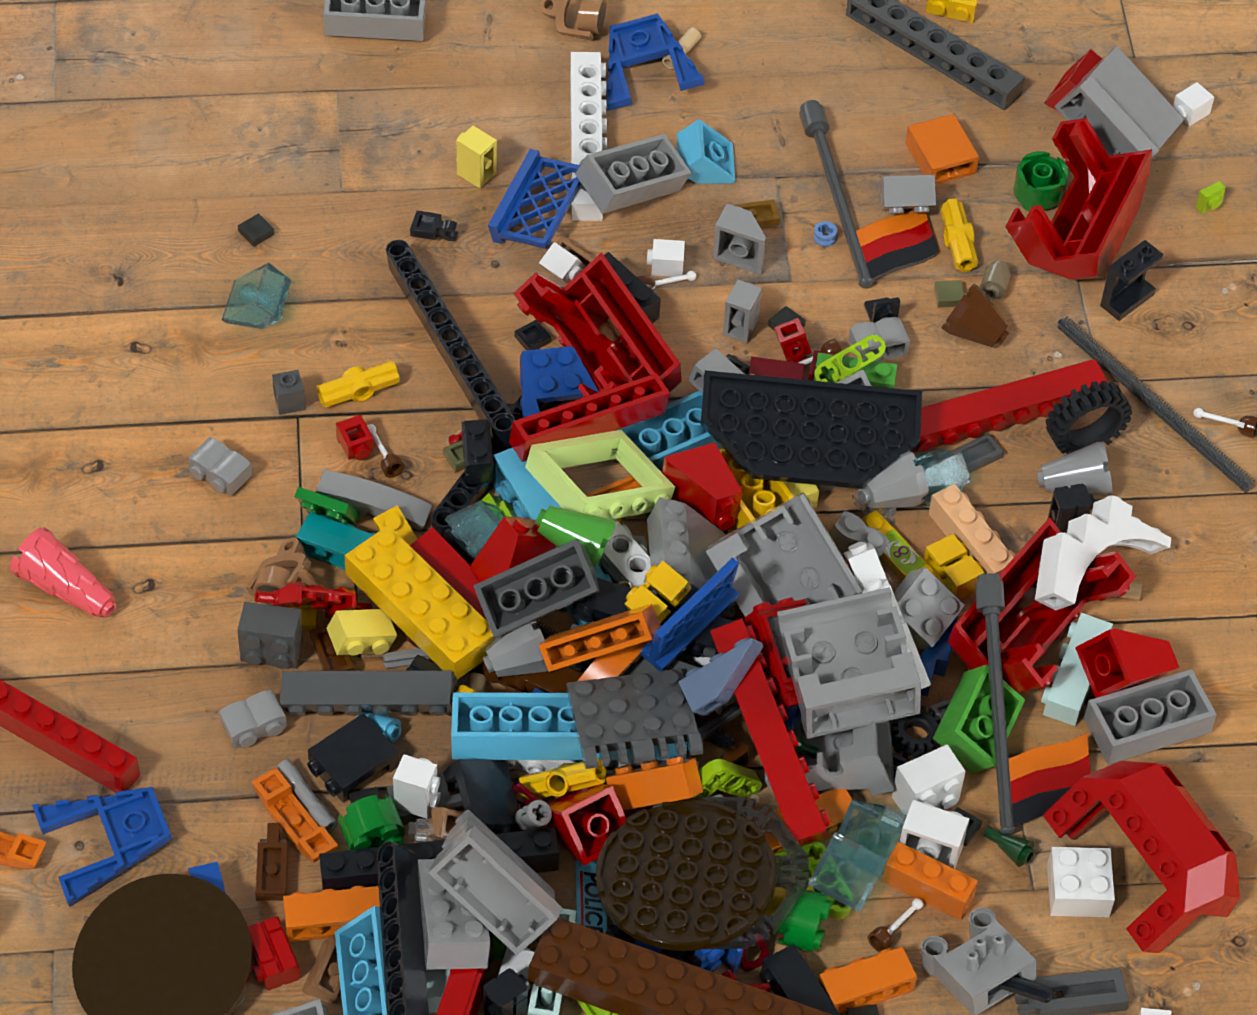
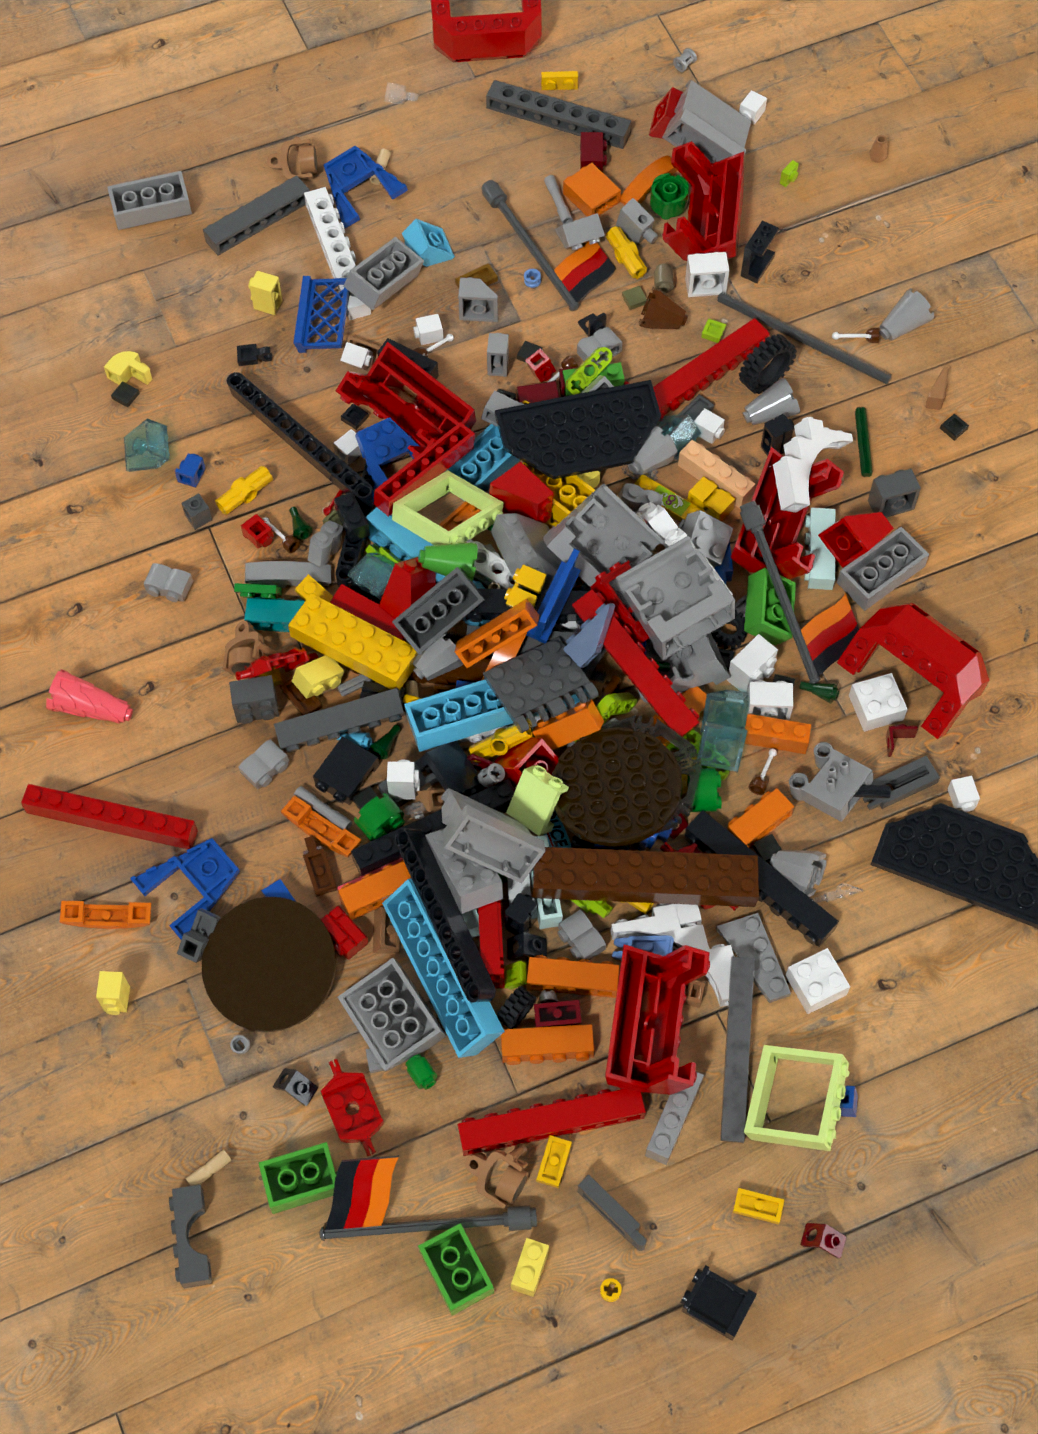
camera: 15 degrees left, 10 degrees up
(80, 904) = (196, 939): none -> dark grey brick
(270, 196) = (124, 366): none -> light yellow brick
(300, 341) = (190, 470): none -> blue brick
(411, 449) = (301, 528): none -> dark green cone
(413, 742) = (382, 747): none -> dark green cone
(433, 475) = (325, 543): none -> light grey brick
(501, 64) = (256, 215): none -> dark grey brick
(506, 370) = (347, 447): none -> white brick
(576, 860) = (536, 799): none -> yellowish green panel
(894, 136) = (554, 191): none -> light grey piece
(961, 100) = (592, 149): none -> dark red brick
(983, 202) = (636, 223): none -> light grey torso
(986, 475) = (710, 426): none -> white brick
(1001, 164) = (643, 182): none -> orange slope
(1037, 361) = (713, 330): none -> lime plate
(1052, 288) = (706, 274): none -> white brick
(1098, 929) = (899, 731): none -> dark red bracket
(1119, 31) = (684, 59): none -> light grey bush
(1186, 554) = (863, 442): none -> dark green axle
(1199, 627) = (894, 493): none -> dark grey brick

